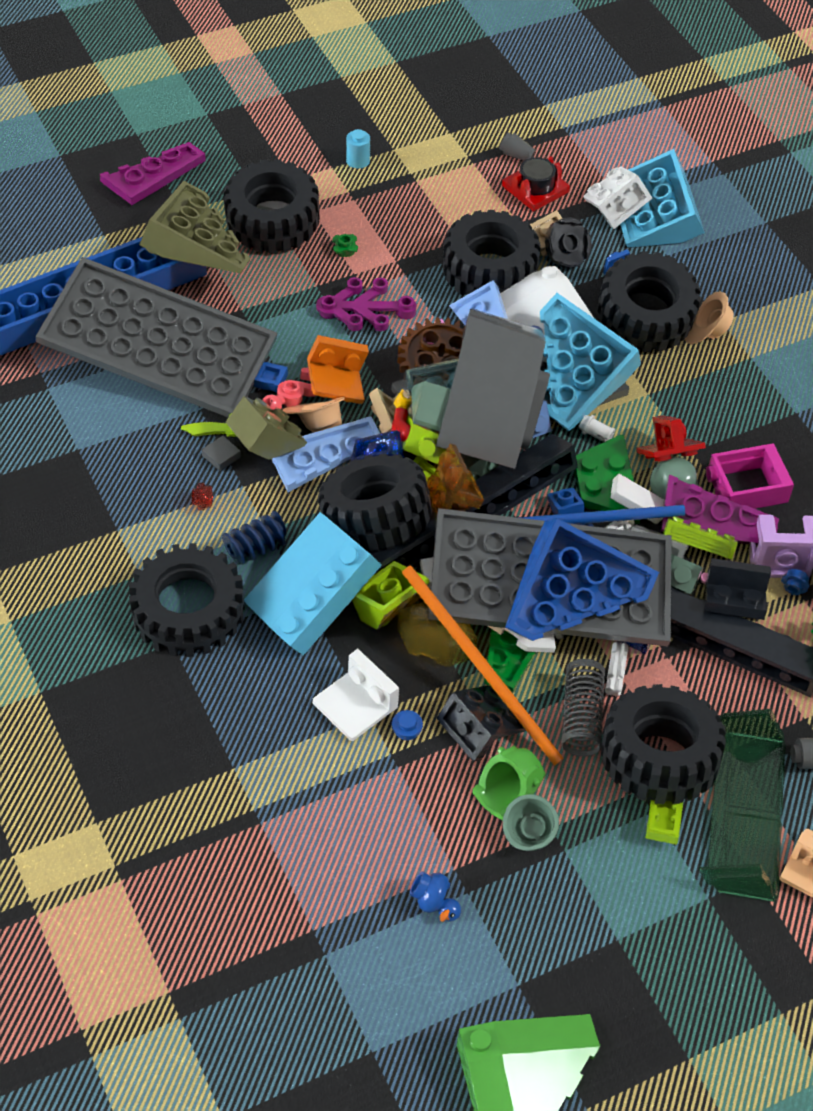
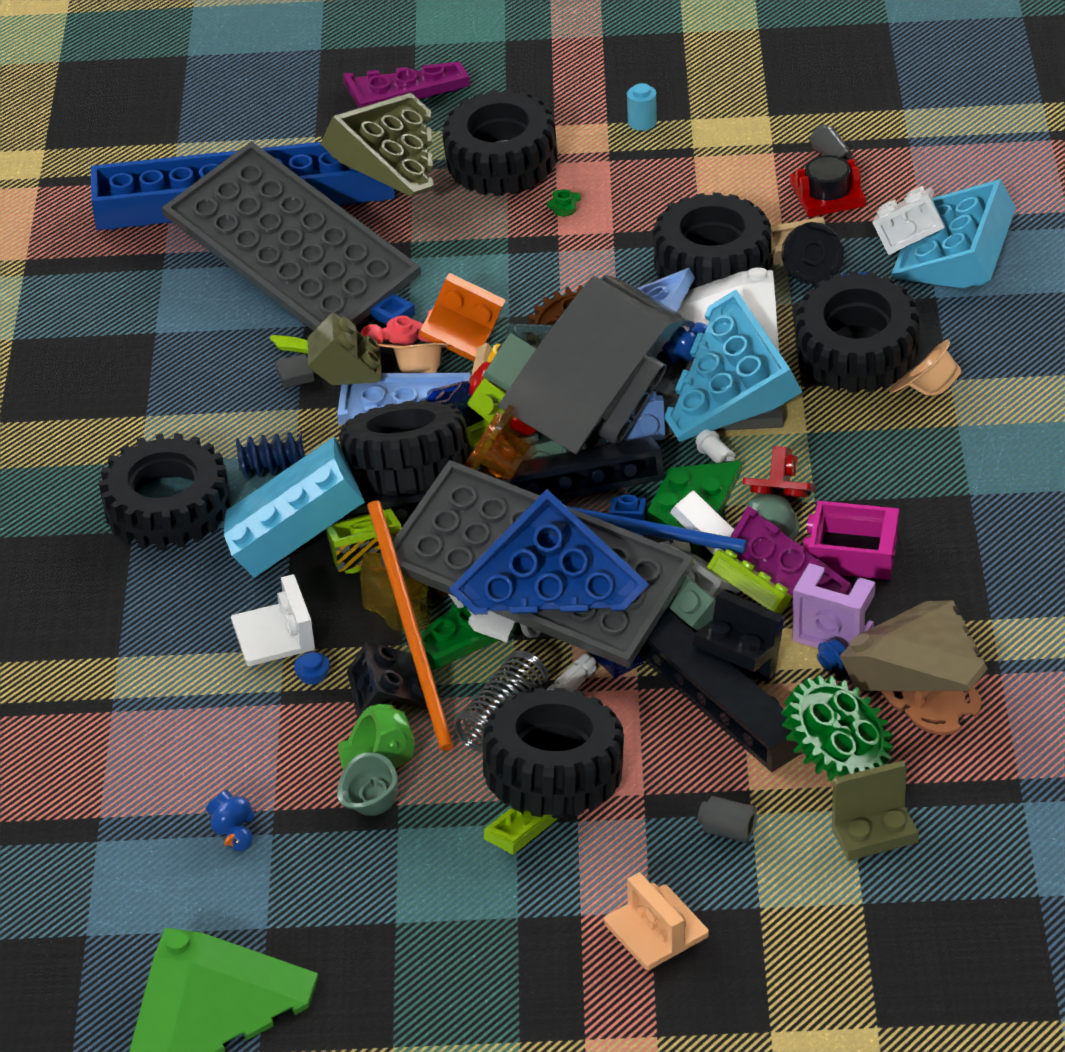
camera: 30 degrees right, 10 degrees down
(202, 496) = (245, 404): clear red plate -> none
(336, 306) = (507, 259): magenta plant -> none
(748, 807) = (625, 839): clear green piece -> none

